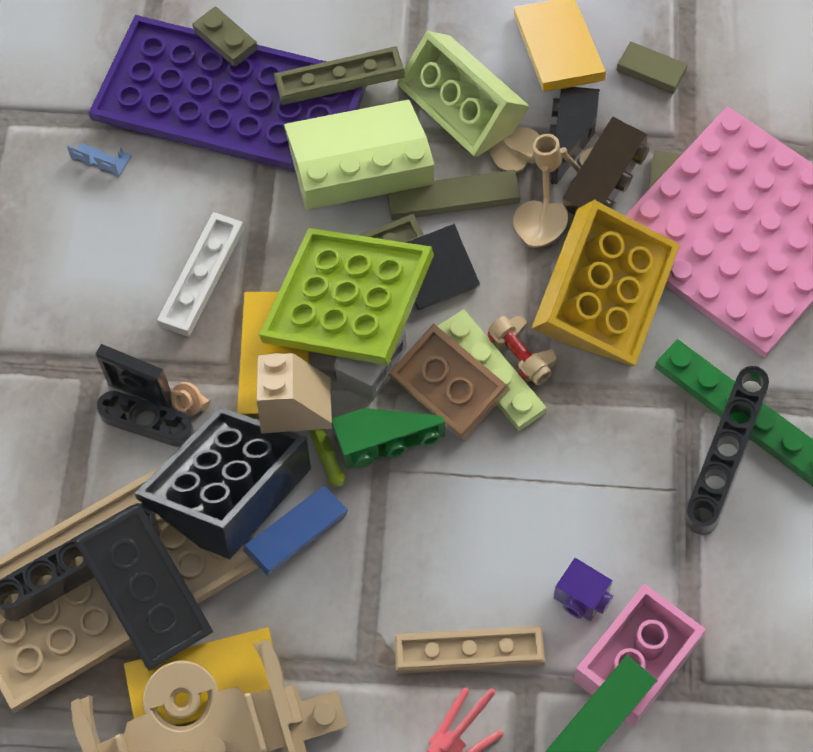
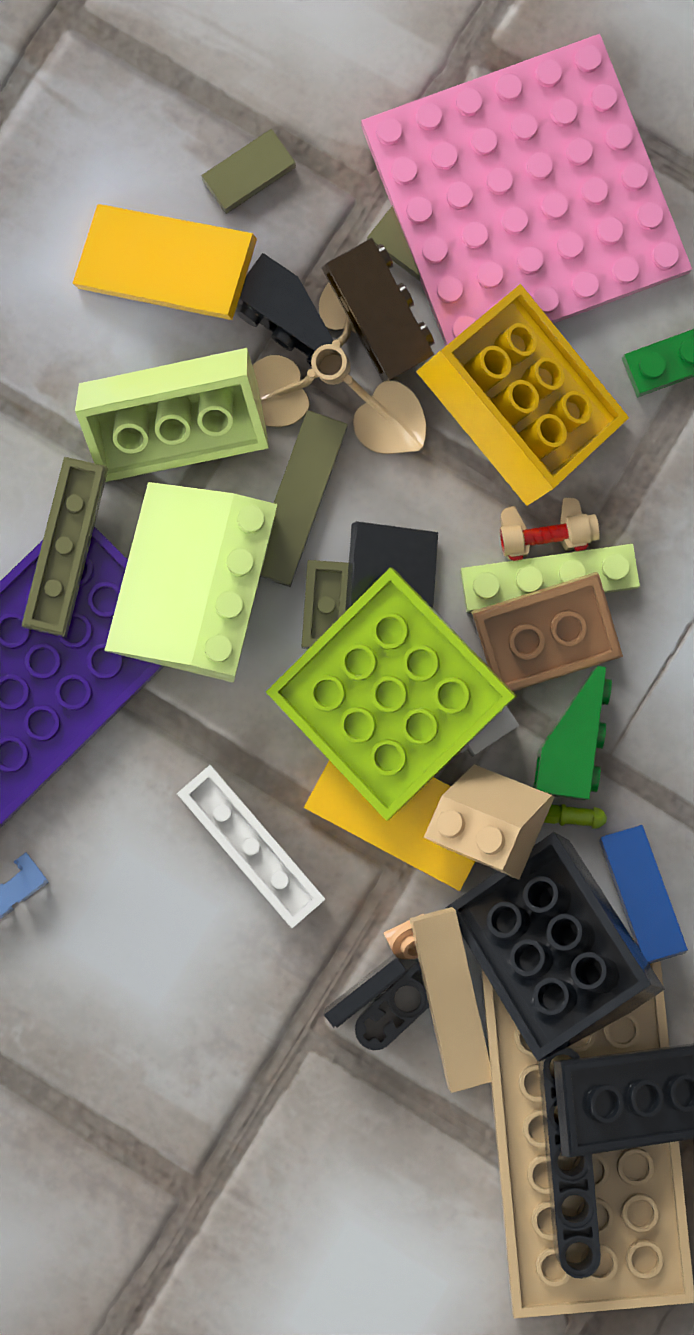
camera: 65 degrees left, 20 degrees up
(157, 438) = (451, 999): none -> tan tile

